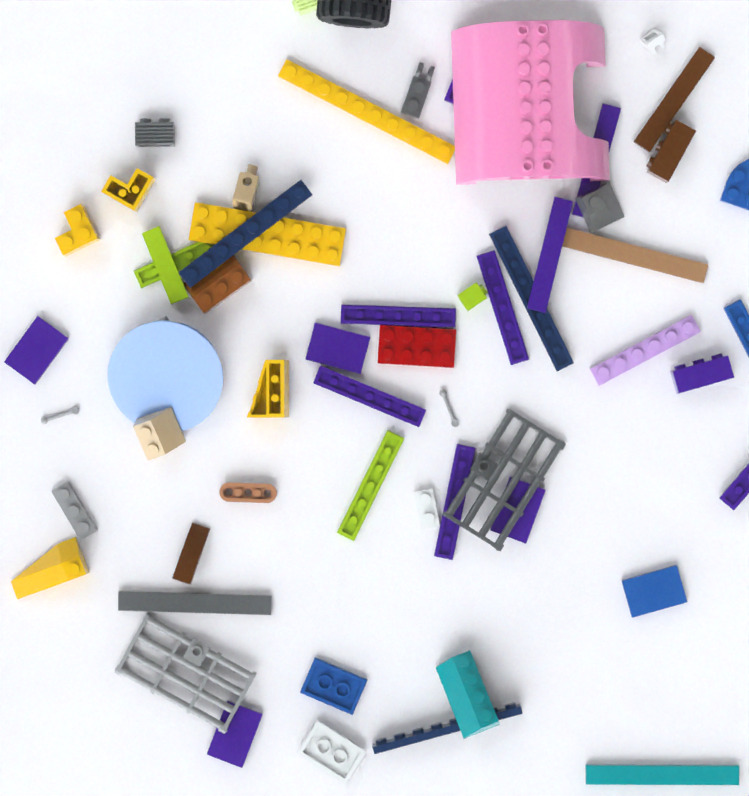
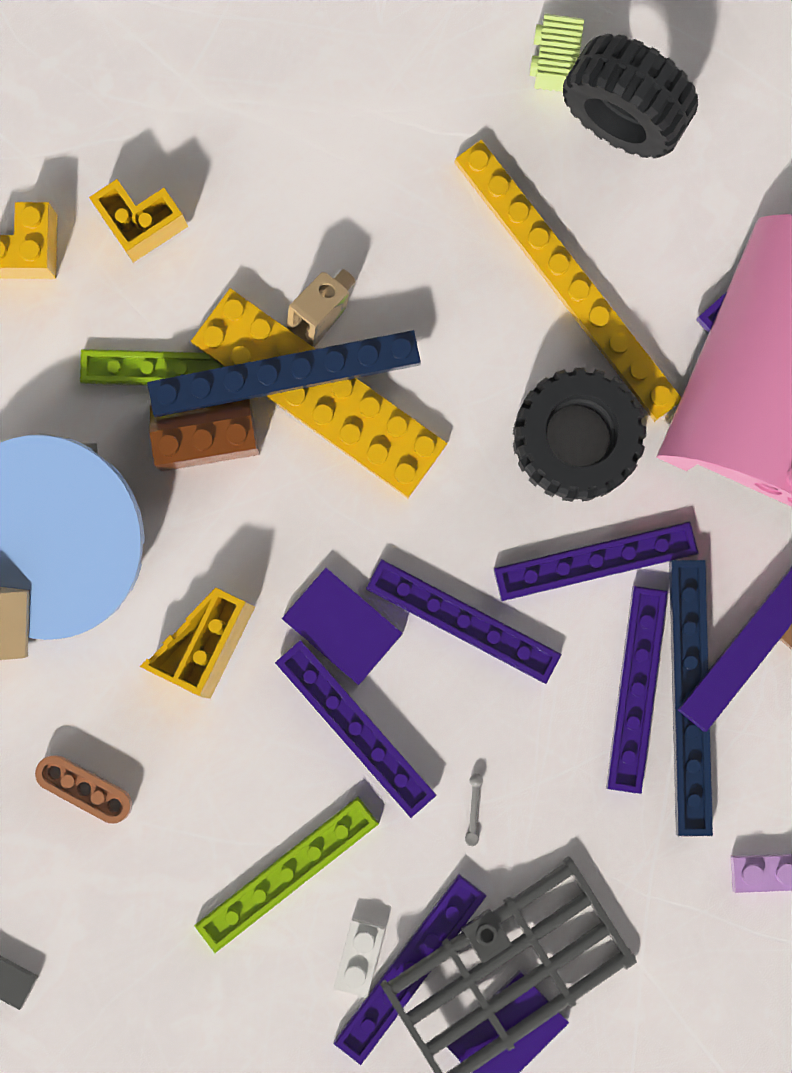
camera: 25 degrees right, 5 degrees down
(155, 133) = (221, 154): dark grey brick -> none
(165, 265) = (134, 363): lime tile -> none
(411, 166) = (599, 395): none -> black tyre
(416, 346) = (470, 685): red plate -> none
(417, 92) = (660, 288): dark grey hinge -> none
(451, 252) = (595, 561): none -> dark purple tile
(472, 296) = (598, 647): lime brick -> none

